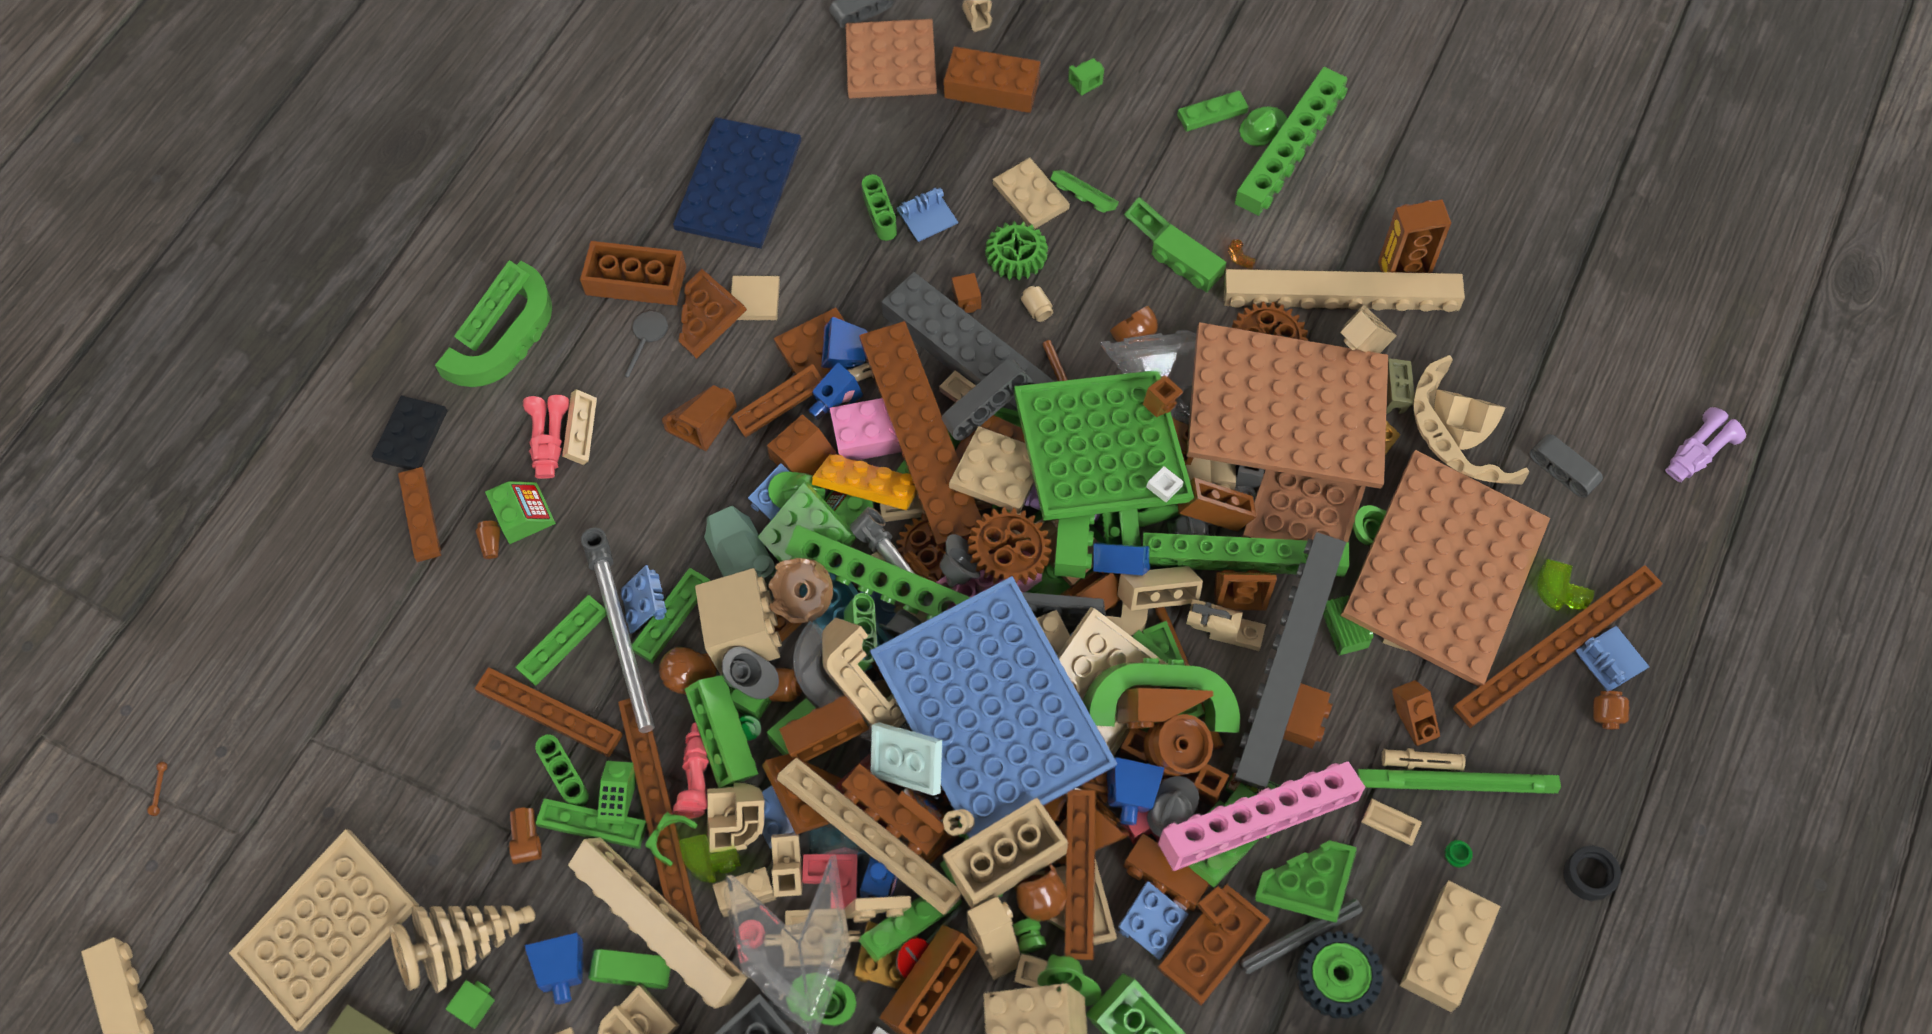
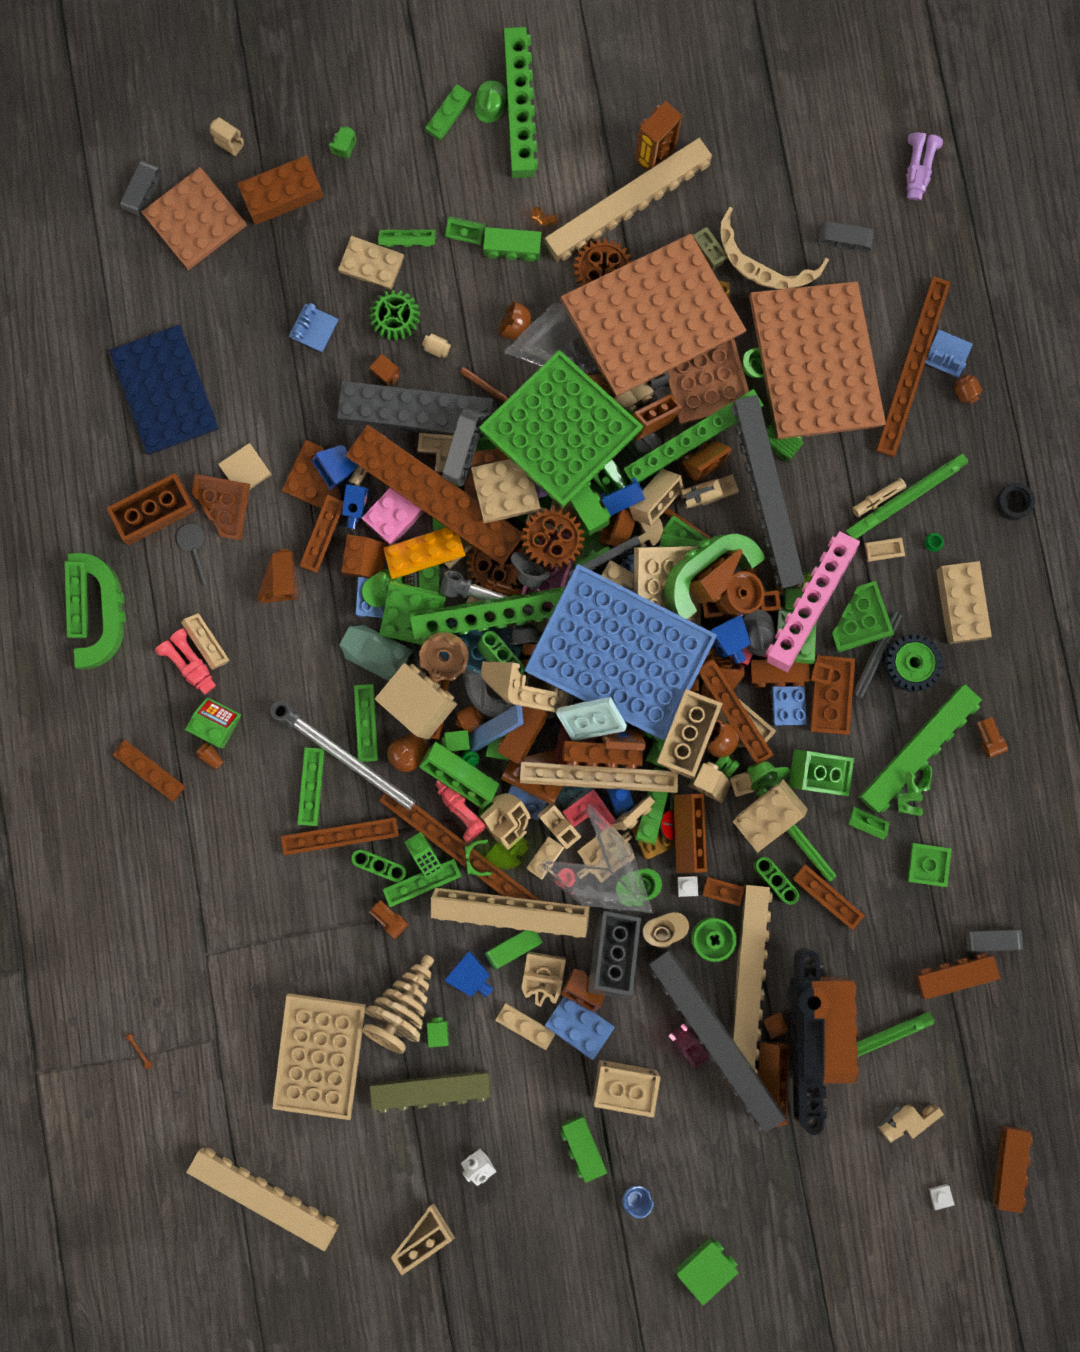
camera: 40 degrees left, 20 degrees up
(409, 433) = (95, 722): black plate -> none
(643, 598) = (340, 727): medium blue hinge -> none
(749, 673) = (452, 730): dark grey piece -> none
(799, 705) = (496, 728): none -> medium blue tile
(874, 197) = (273, 337): bright green beam -> none
(966, 819) = (656, 737): tan bush -> none
(1162, 396) = (580, 371): dark orange brick -> none
(1164, 484) = (622, 432): white plate -> none
(1307, 715) = (798, 516): dark orange brick -> none
(1366, 332) = (664, 224): tan wedge -> none
(1416, 711) = (857, 469): dark orange slope -> none
(1467, 418) = (765, 244): tan brick -> none
(1555, 587) = (889, 329): clear neon green brick -> none

